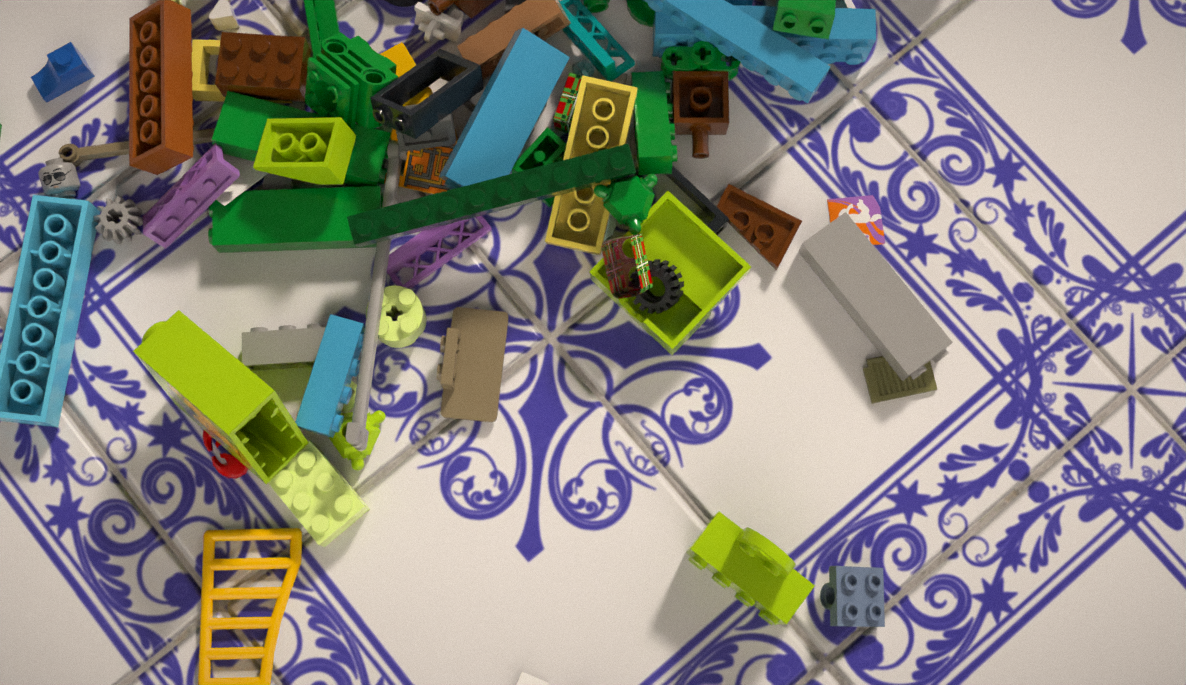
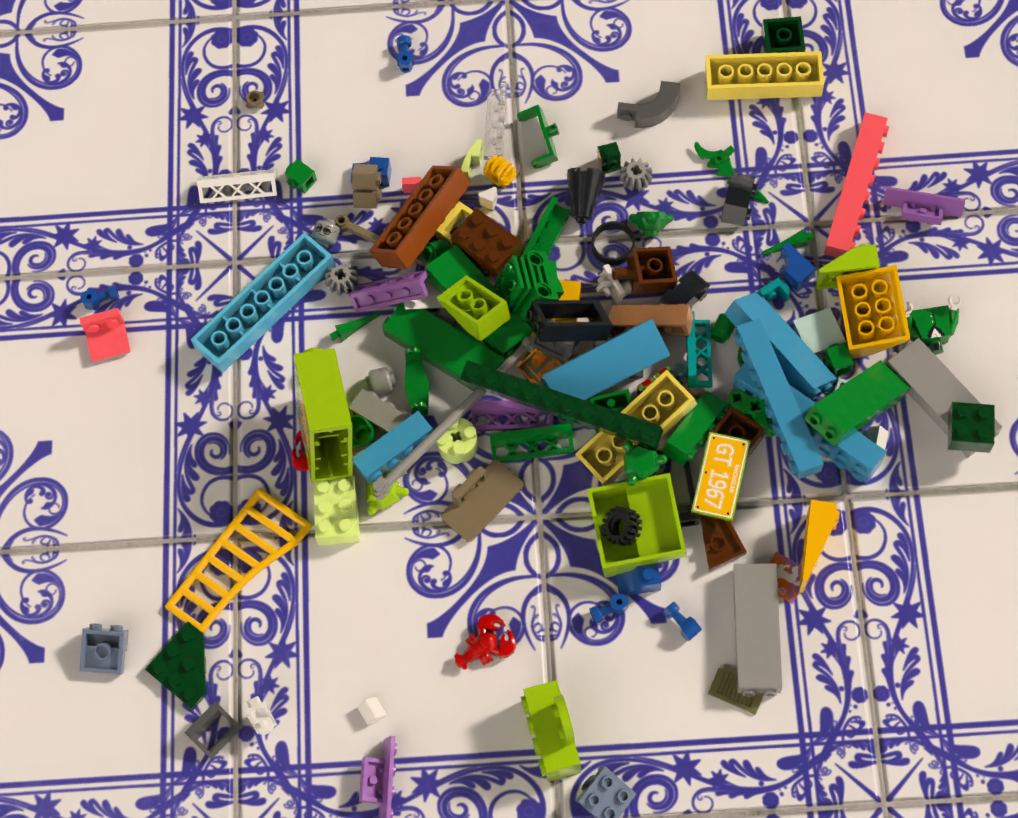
camera: 45 degrees right, 10 degrees down
(63, 88) = (366, 185): none -> dark tan piece
(119, 57) = (410, 183): none -> coral tile
(170, 275) = (345, 330): none -> green piece
(207, 114) = (435, 249): none -> green brick
(255, 308) = (380, 381): none -> light grey head
(281, 380) = (362, 431): none -> green hair
(300, 283) = (416, 382): none -> green piece
(474, 254) = (529, 436): none -> green fence
(600, 521) = (486, 642): none -> red animal
(619, 273) = (601, 501): piece -> none
(708, 377) = (618, 605): none -> blue leg
(712, 332) = (640, 580): none -> blue arch
(721, 156) = (720, 476): none -> yellow tile
(801, 345) = (688, 626): none -> blue leg
(863, 150) = (820, 522): none -> yellow slope

